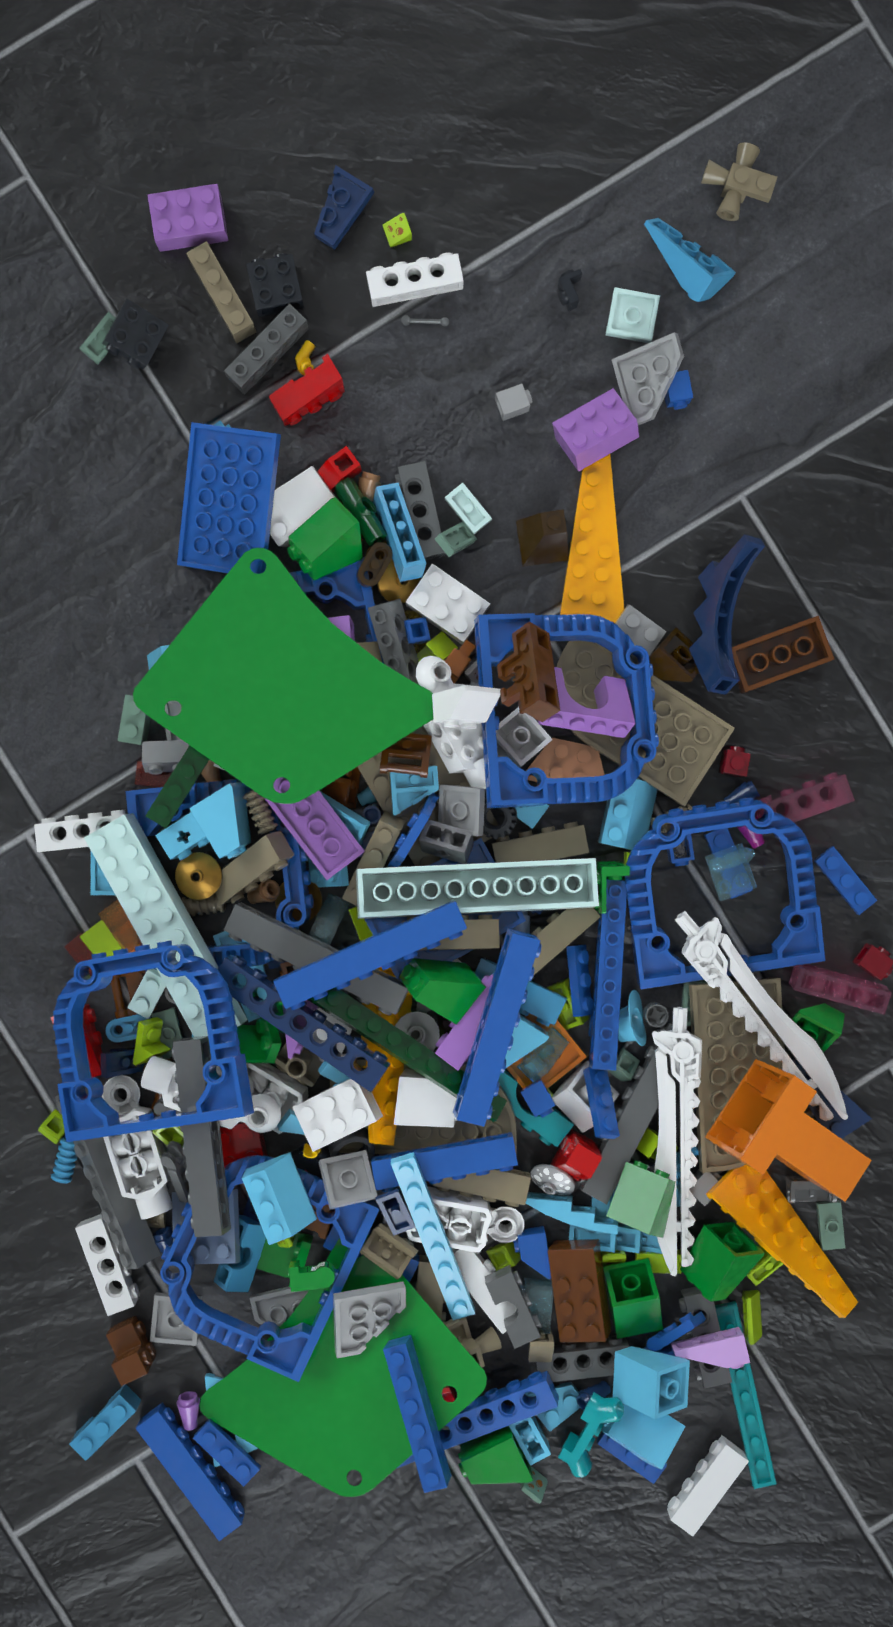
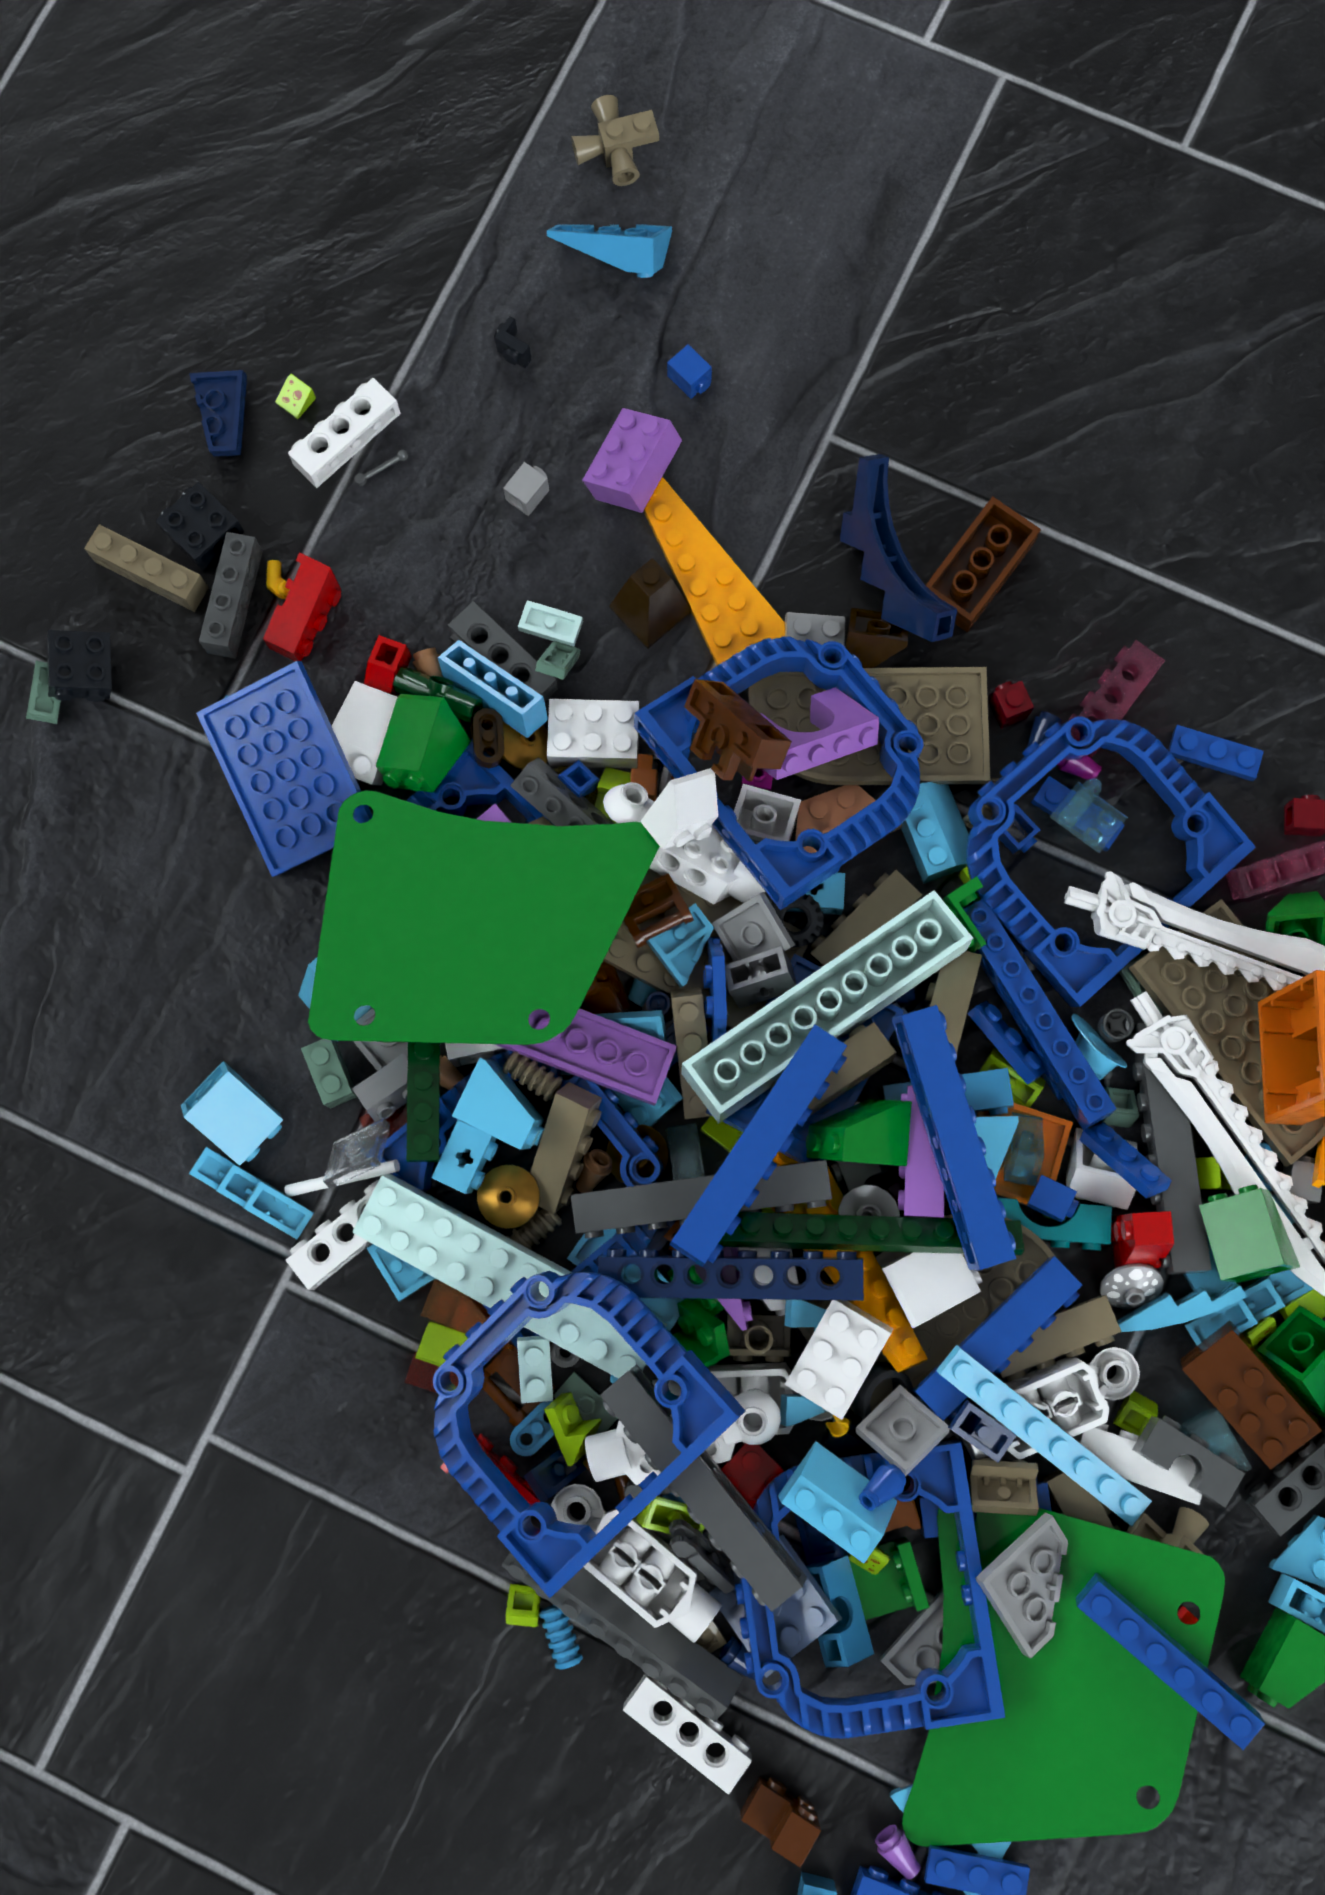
camera: 30 degrees left, 10 degrees down
(40, 765) = (251, 1193): none -> medium azure slope
(56, 706) = (231, 1114): none -> medium azure slope
(102, 795) = (318, 1184): none -> white bar
(120, 786) = (356, 1153): none -> clear plate
(167, 1325) = (808, 1756): light grey plate -> none
(187, 217) = (64, 515): medium lavender brick -> none
(311, 1207) = (883, 1486): none -> blue cone
(311, 1277) = (937, 1574): green leg -> none
(502, 1414) = (1265, 1602): blue brick -> none
(534, 1249) = (1166, 1382): blue slope -> none
(541, 1348) = (1255, 1491): dark tan slope -> none
(632, 315) = (594, 331): light aqua tile -> none
(647, 375) = (649, 372): light grey plate -> none

